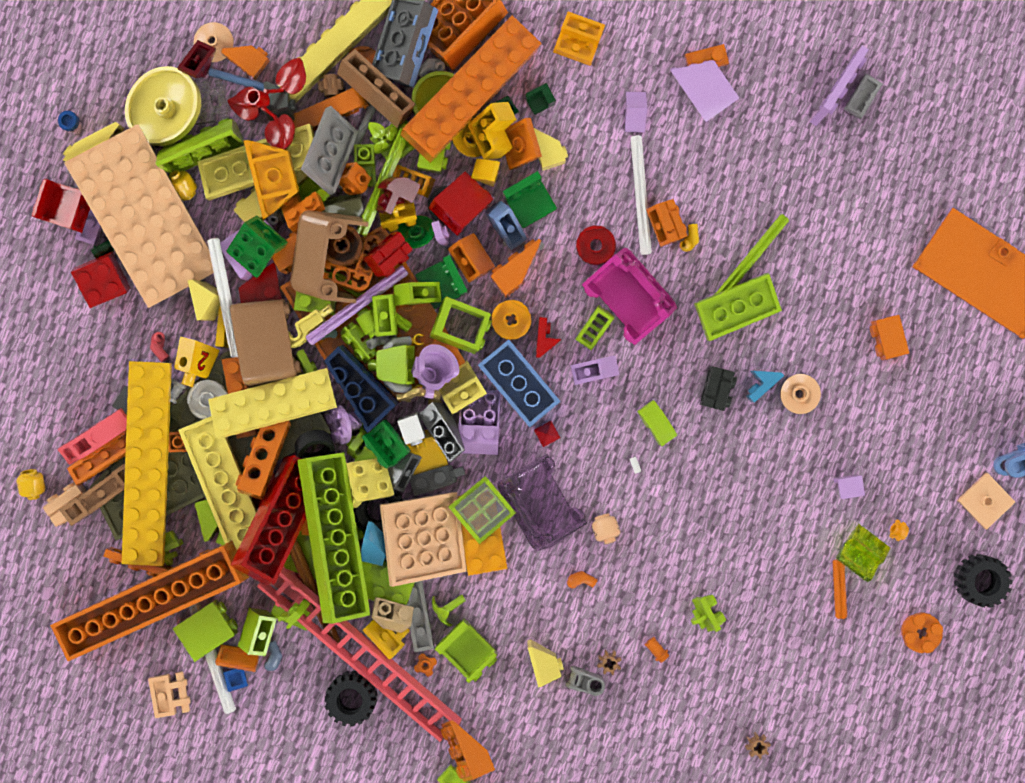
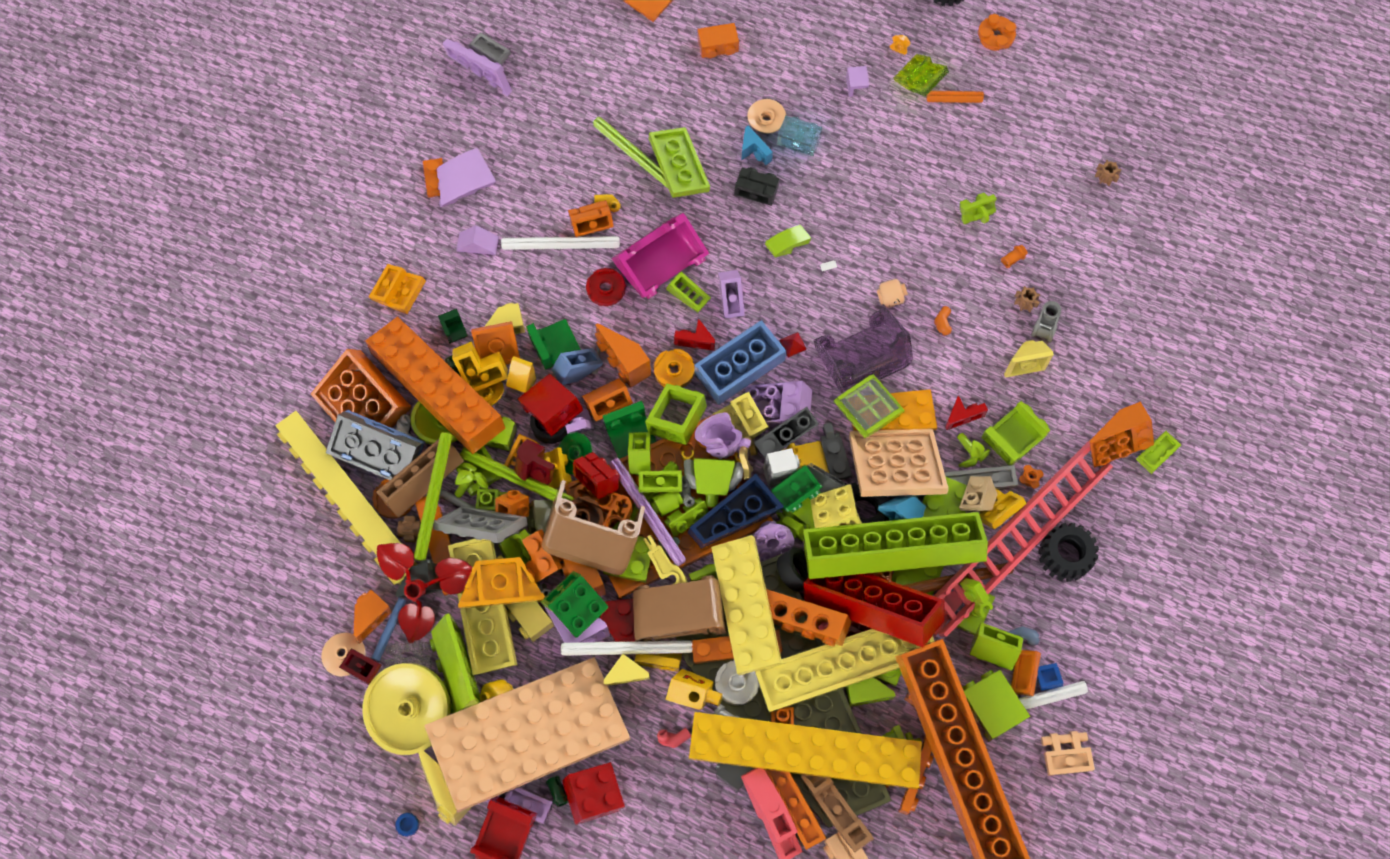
camera: 80 degrees left, 20 degrees down
(352, 103) = (433, 496): none -> lime axle
(480, 596) = (961, 416): none -> red slope
(778, 429) = (799, 135): none -> clear light blue brick

